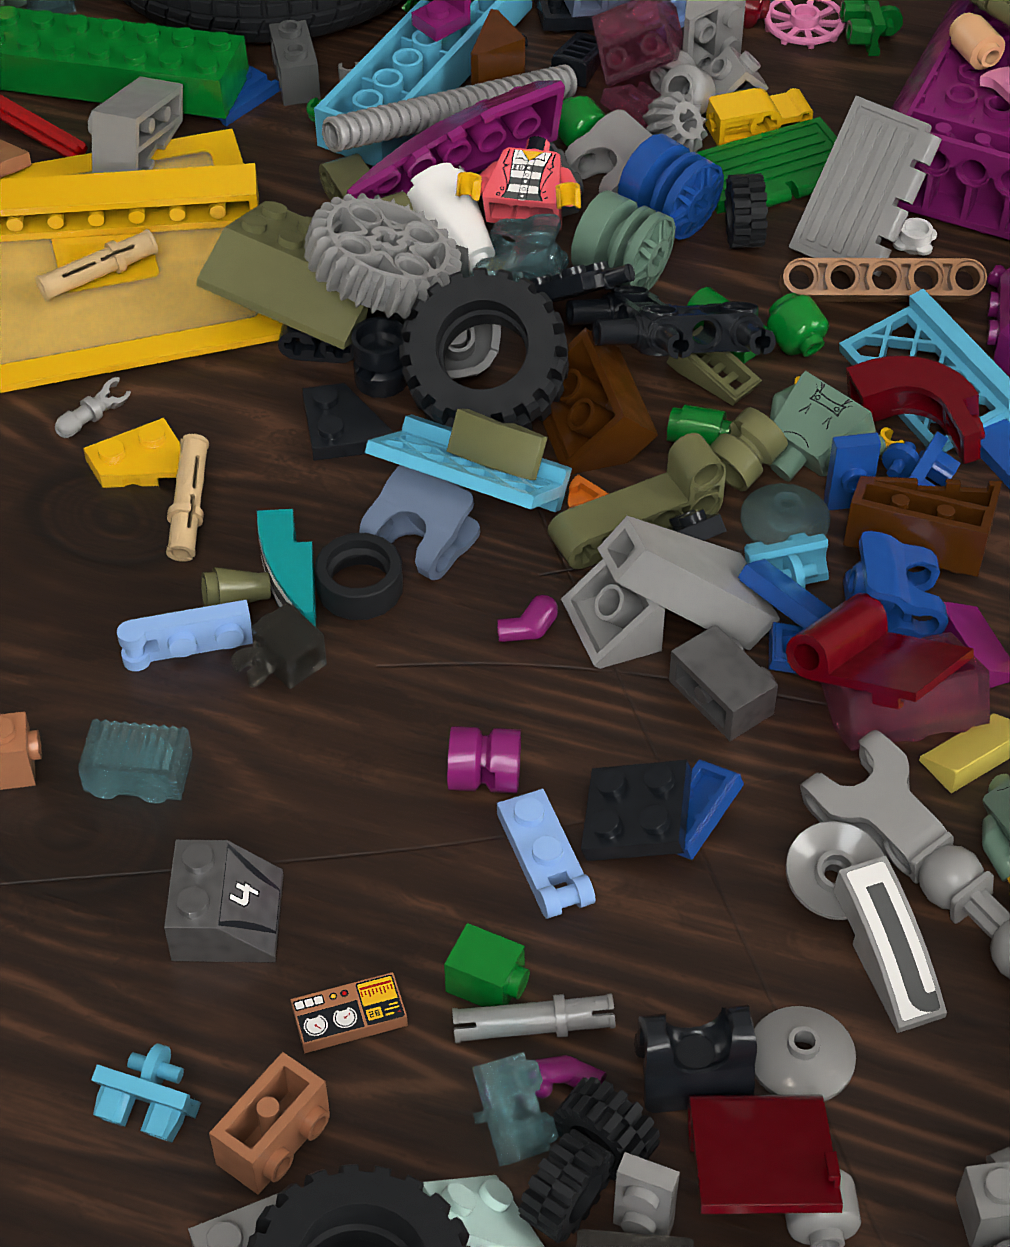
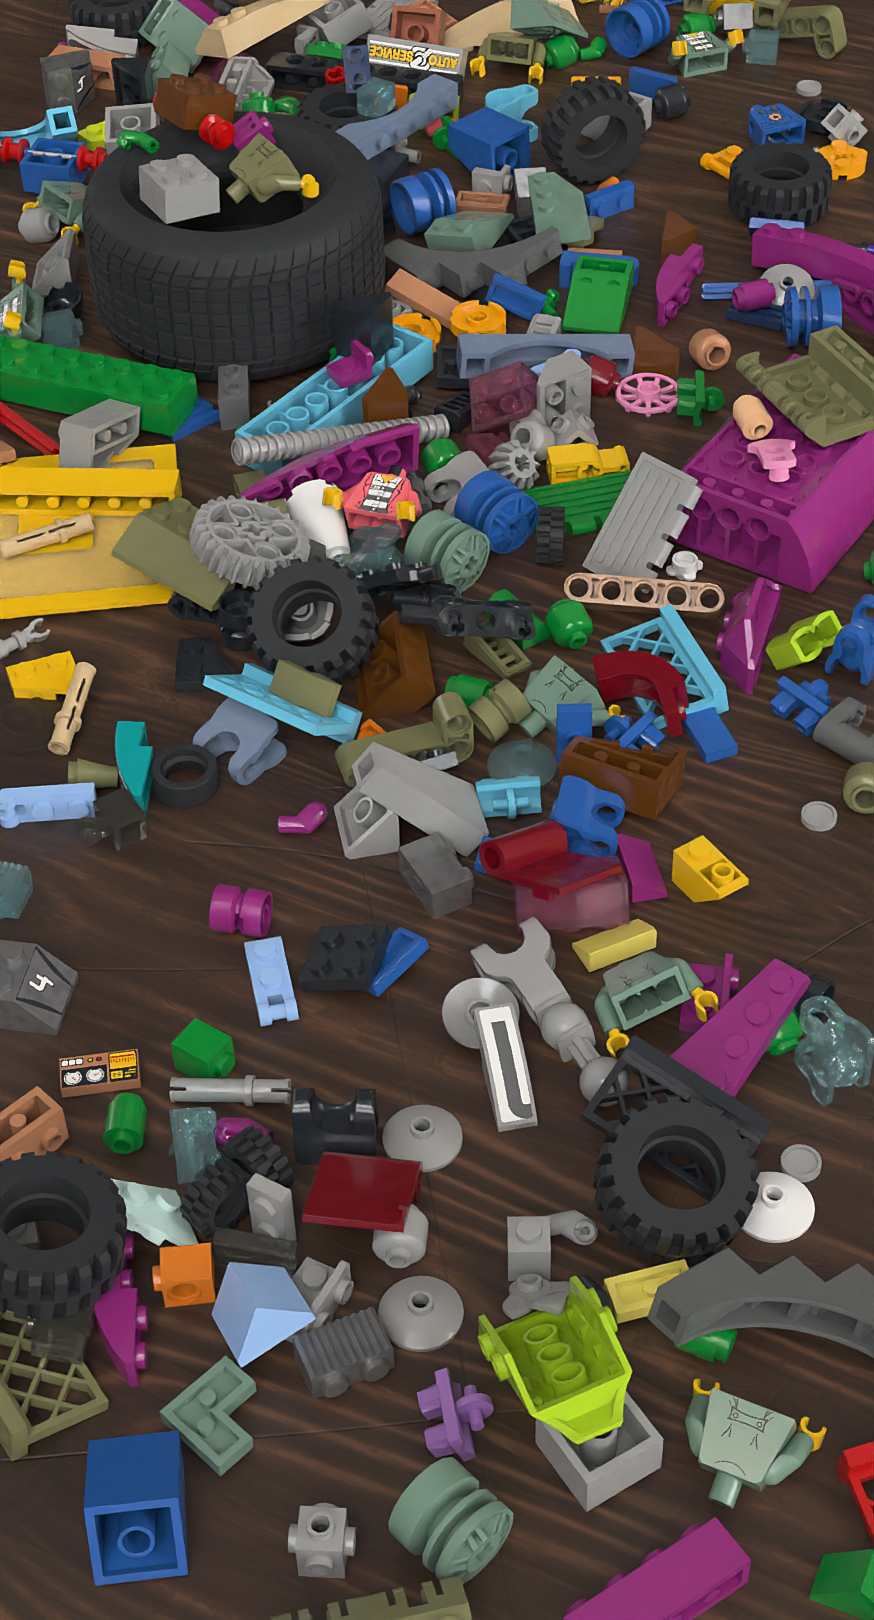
camera: 10 degrees right, 5 degrees down
(405, 1085) = (125, 1123): none -> green brick
(783, 592) = (491, 811): blue tile -> none

